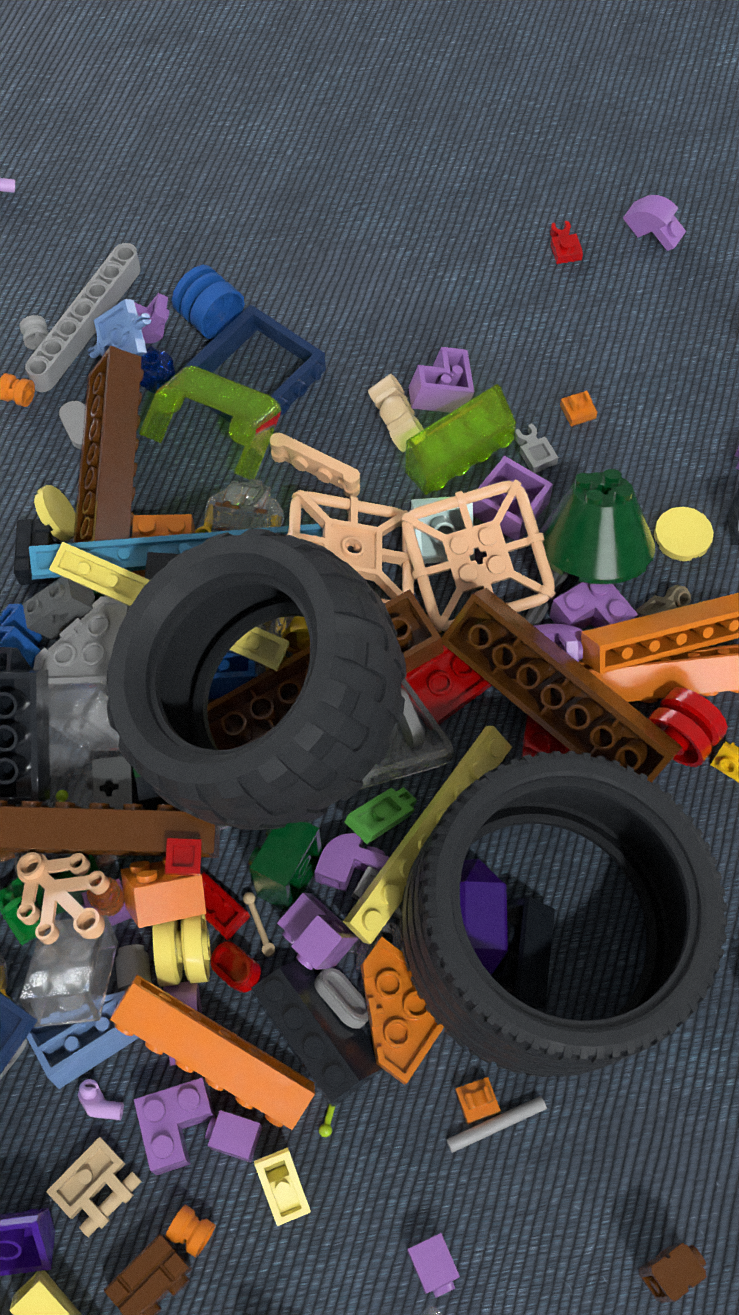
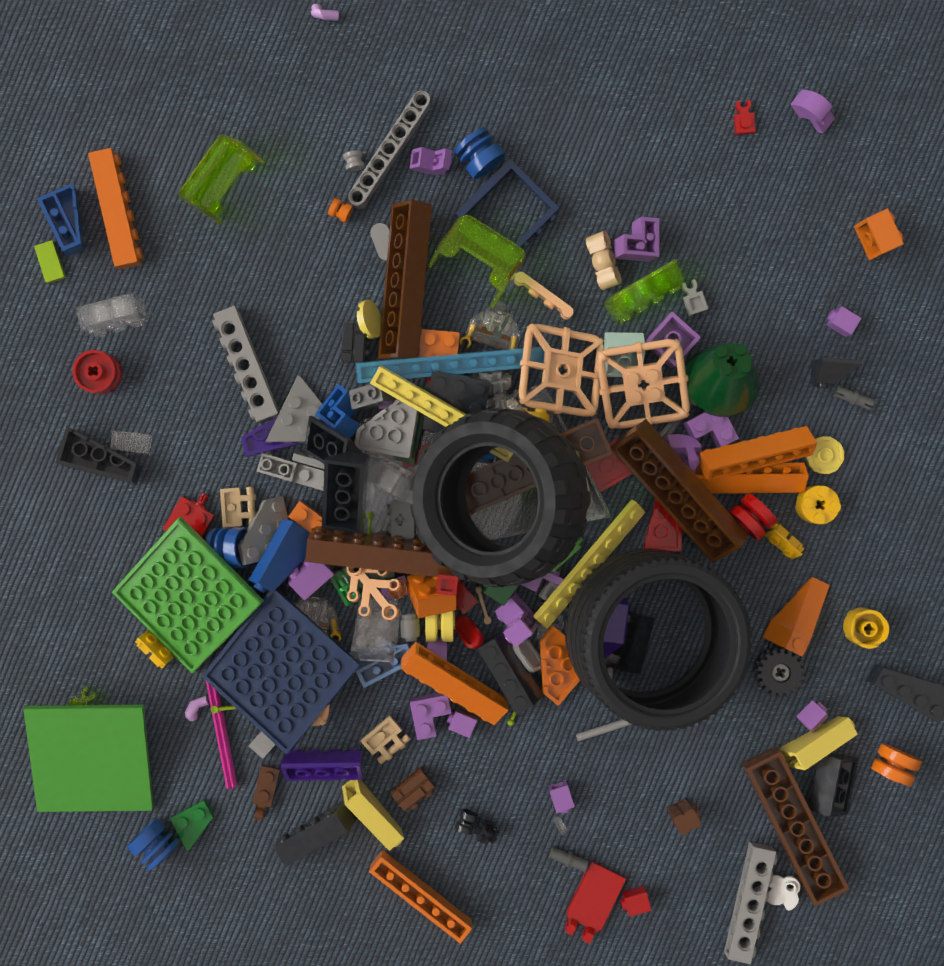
camera: 10 degrees right, 25 degrees up
(95, 1103) = (387, 697): lavender arm -> none
(120, 329) = (416, 180): medium blue plate -> none
(157, 369) = (444, 210): clear blue brick -> none
(189, 1230) = (433, 766): orange wheel -> none
(282, 1186) = (486, 751): light yellow slope -> none
(477, 1100) = (595, 715): orange tile -> none
(578, 408) = (728, 266): orange tile -> none
(675, 597) = (754, 429): dark tan plate -> none
(683, 533) = (780, 373): light yellow tile -> none

